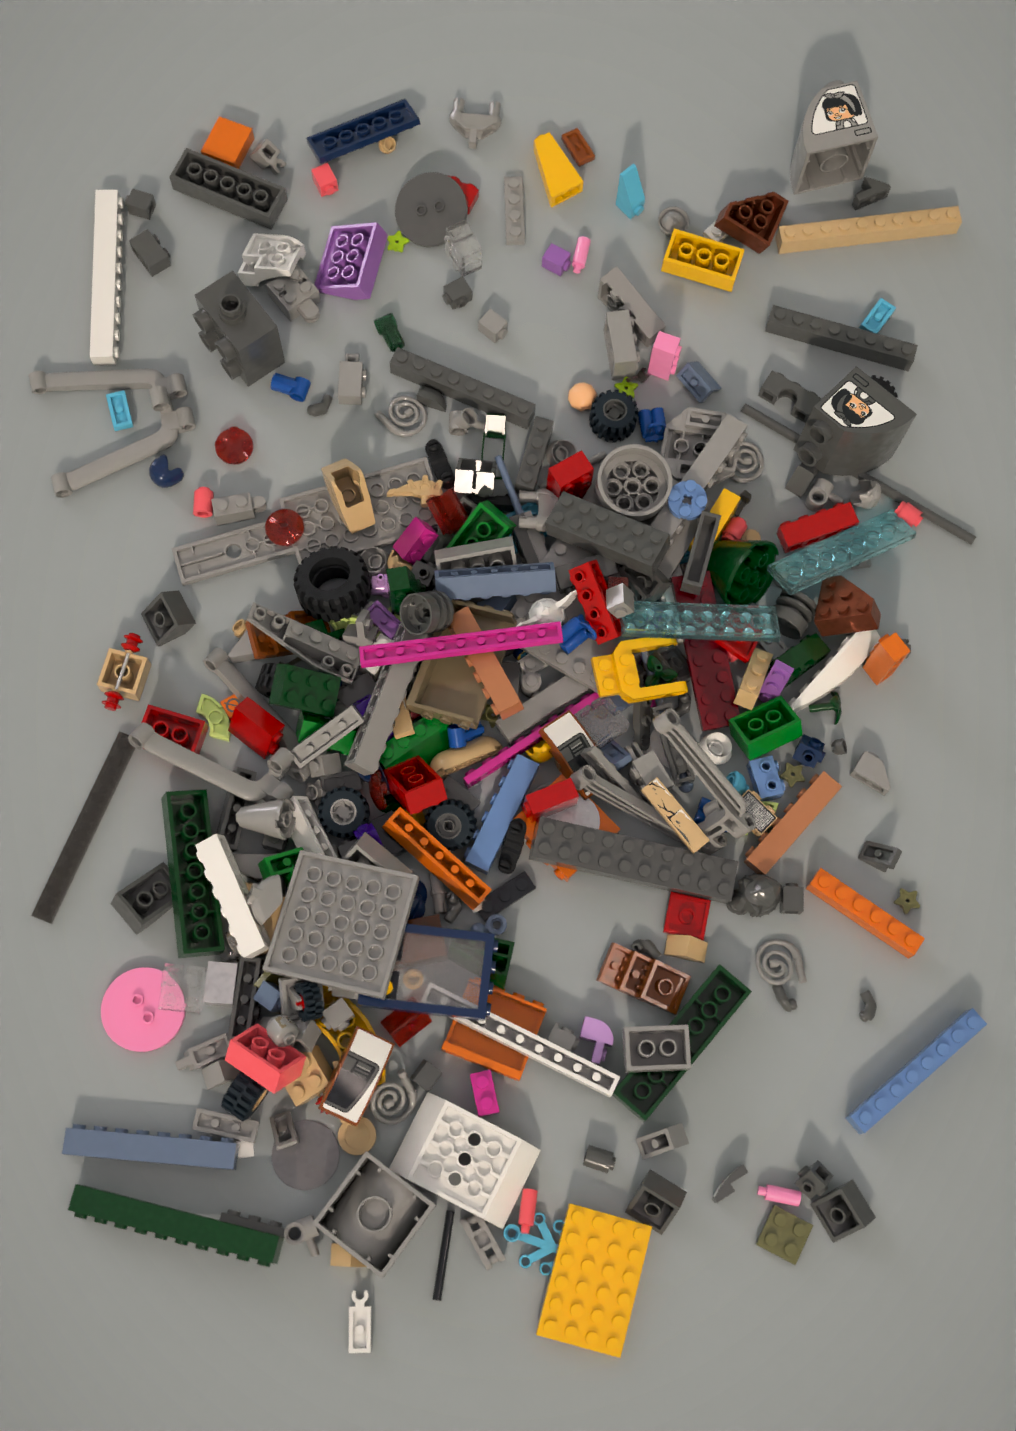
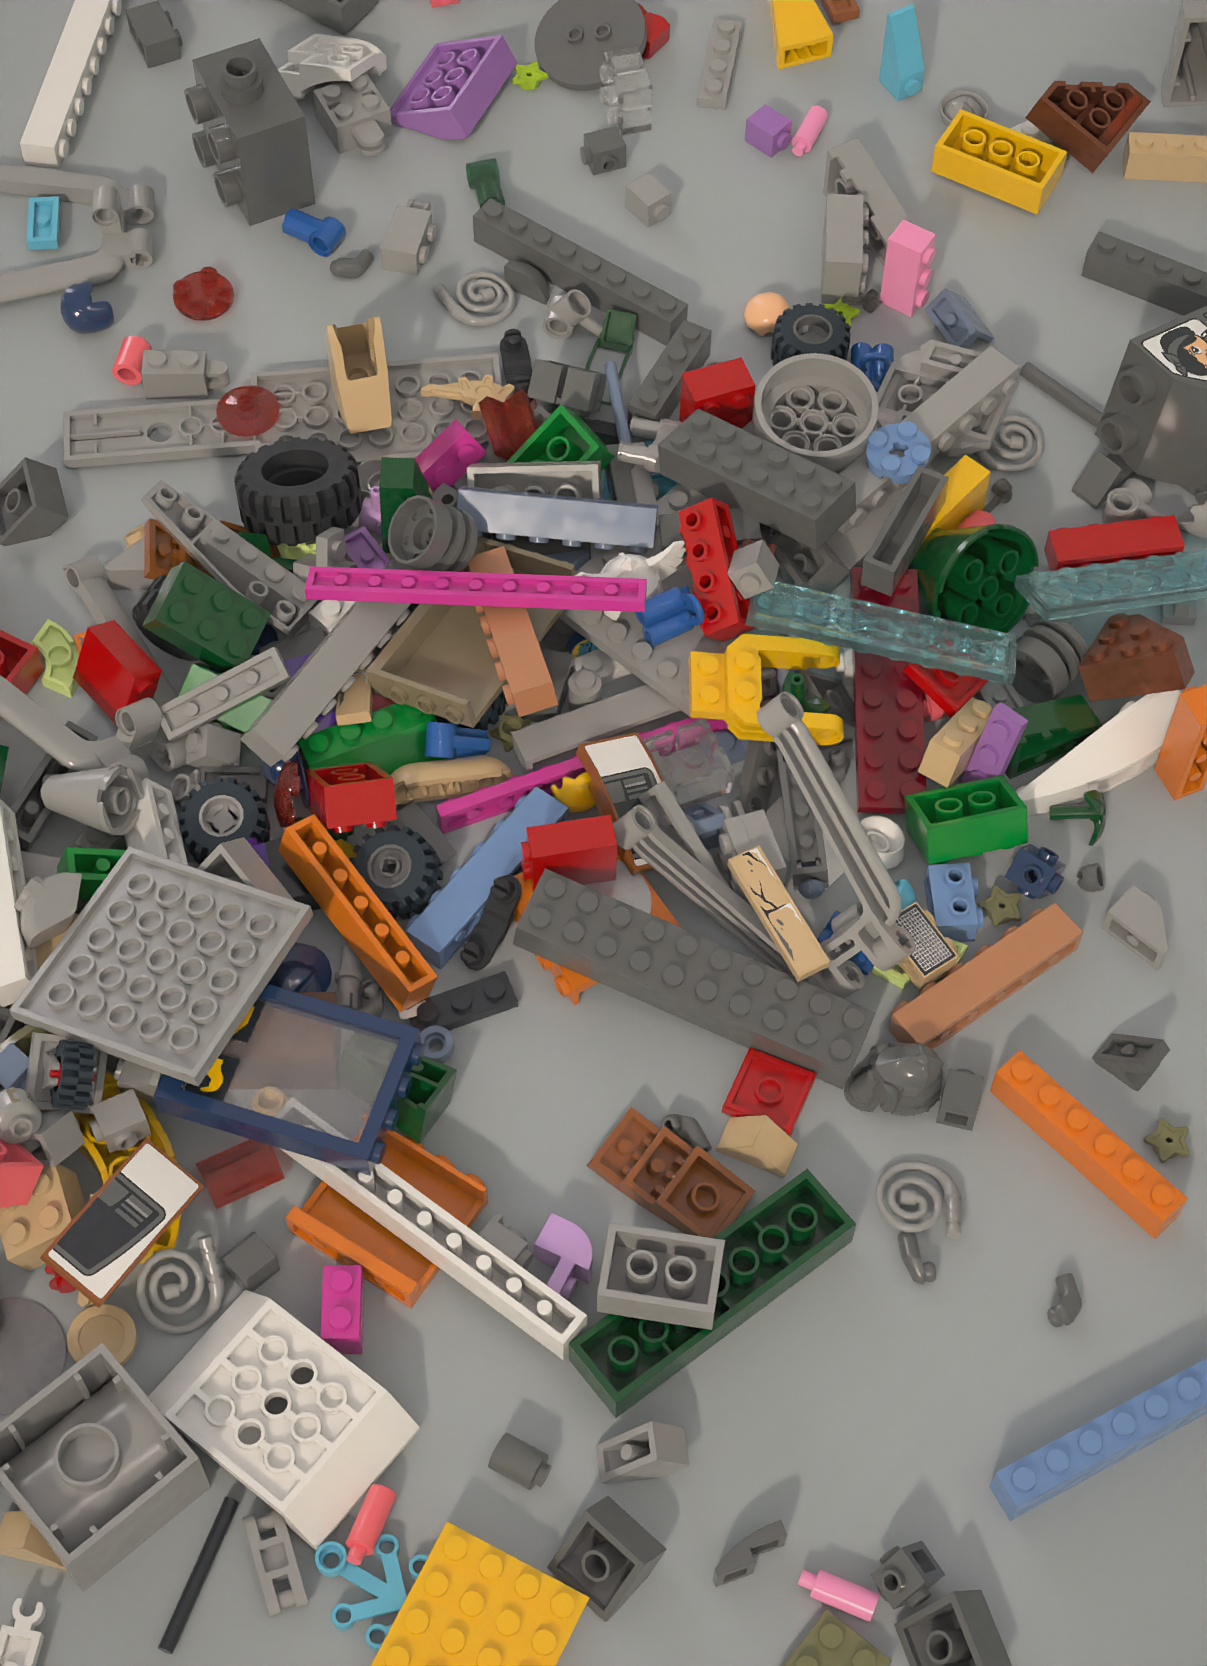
camera: 15 degrees right, 15 degrees down
(778, 386) = (1087, 347): dark grey arch -> none

